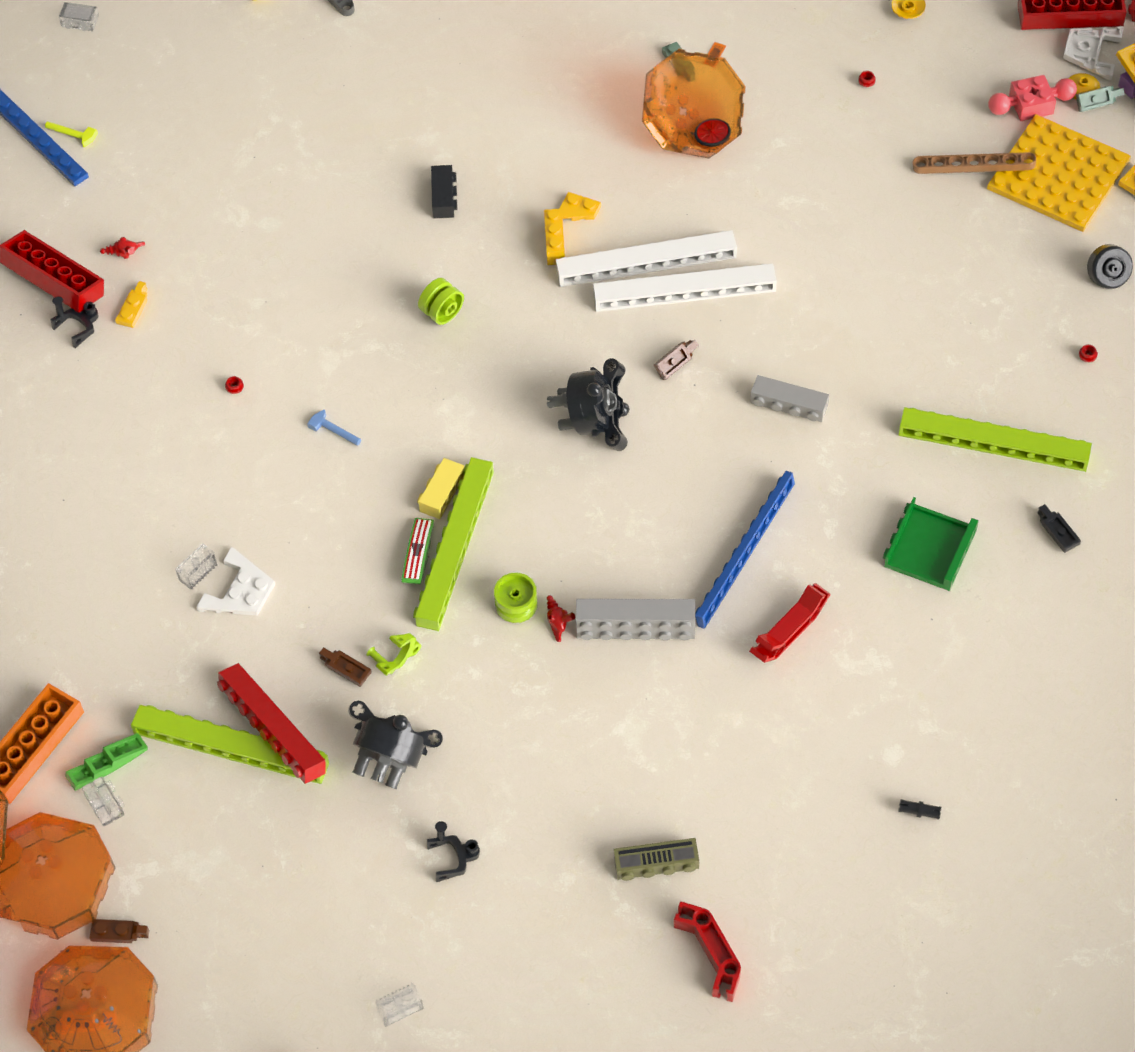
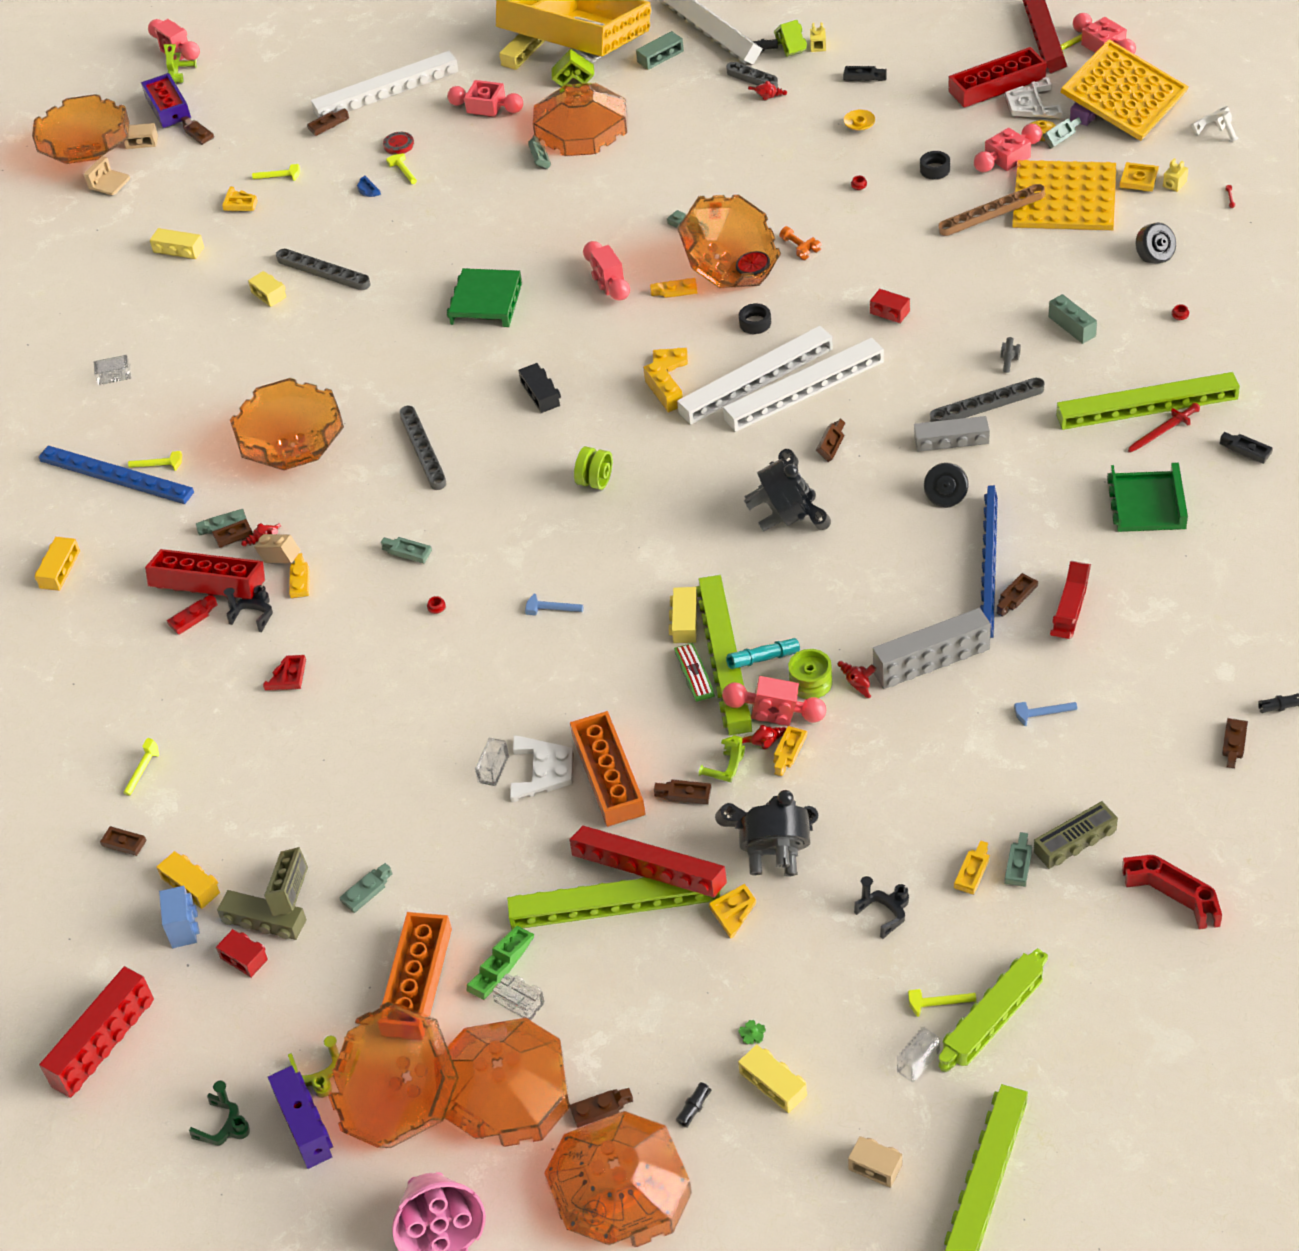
camera: 20 degrees left, 10 degrees down
(24, 306) = (192, 614): none -> red hinge
(34, 641) = (366, 888): none -> sand green hinge
(74, 402) = (287, 674): none -> red wing
(96, 221) = (215, 523): none -> sand green hinge
(98, 236) = (232, 533): none -> reddish brown plate
(125, 270) = (277, 548): none -> tan brick
(190, 132) = (287, 415): none -> clear orange windscreen
(192, 965) = (693, 1104): none -> black pin
(238, 316) = (407, 549): none -> sand green hinge
(269, 970) = (773, 1078): none -> light yellow brick
(278, 920) = (752, 1032): none -> bright green plant
(289, 615) = (607, 769): none -> orange brick
(307, 219) = (422, 453): none -> dark grey beam
(324, 798) = (733, 908): none -> yellow wing
(430, 955) = (917, 1002): none -> neon yellow piece
(443, 642) = (765, 736): none -> red piece
(448, 69) = (485, 295): none -> green panel
(457, 663) = (788, 749): none -> yellow hinge
(465, 613) = (774, 701): none -> coral brick
(484, 559) = (762, 653): none -> teal piece
(487, 992) = (993, 1010): none -> lime hinge
(548, 851) = (972, 869): none -> yellow hinge
(569, 87) = (606, 270): none -> coral brick
(592, 862) = (1019, 861): none -> sand green hinge
(626, 130) = (674, 288): none -> yellow hinge
(676, 185) = (755, 327): none -> black tyre
(685, 718) = (1022, 711): none -> medium blue piece
(749, 593) = (1016, 593): none -> reddish brown hinge
(751, 452) = (946, 484): none -> black wheel
(764, 111) = (803, 247): none -> orange bar
(812, 234) = (890, 305): none -> red brick
(854, 373) = (980, 406): none -> dark grey beam
(856, 828) = (1234, 740): none -> reddish brown hinge
(893, 332) = (1008, 352): none -> dark grey piece
(951, 97) = (935, 172): none -> black tyre
(977, 319) = (1072, 318): none -> sand green brick
(1015, 469) = (1176, 419): none -> red sword

